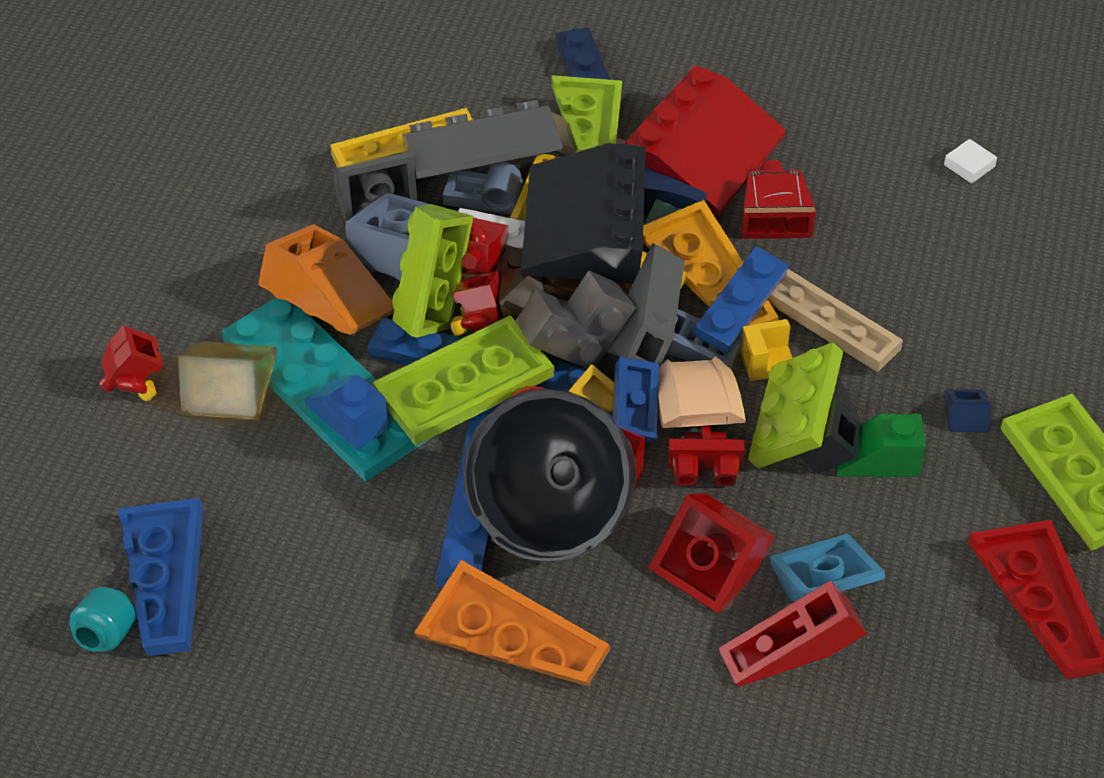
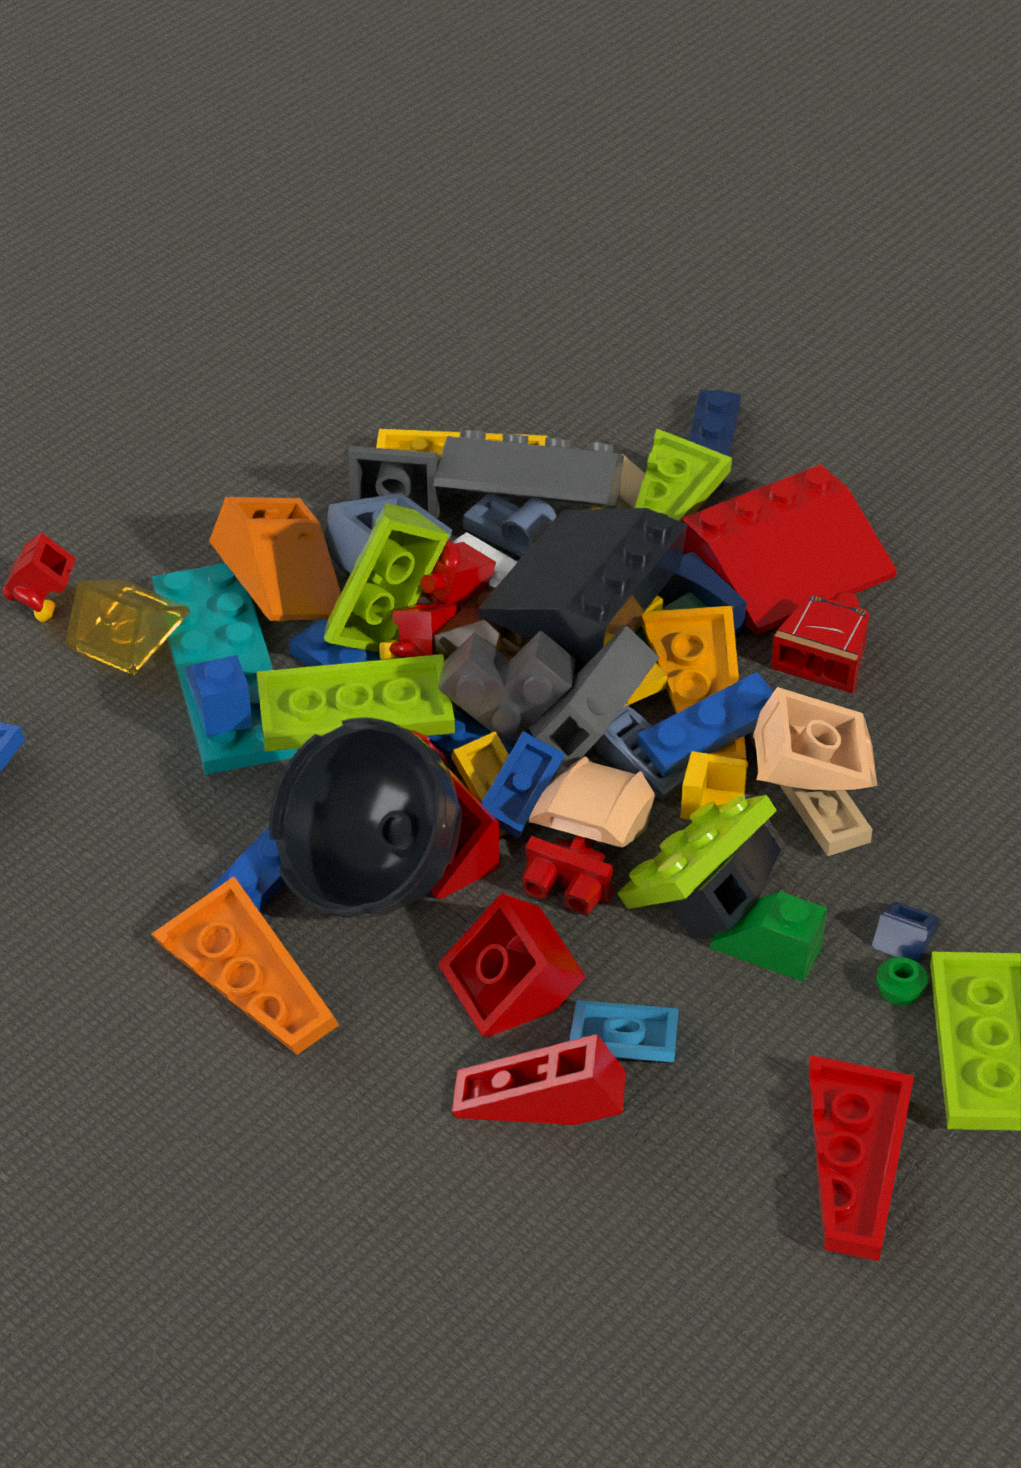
camera: 25 degrees right, 5 degrees down
(828, 290) = (813, 744): none -> light nougat slope
(990, 449) = (901, 980): none -> green plate

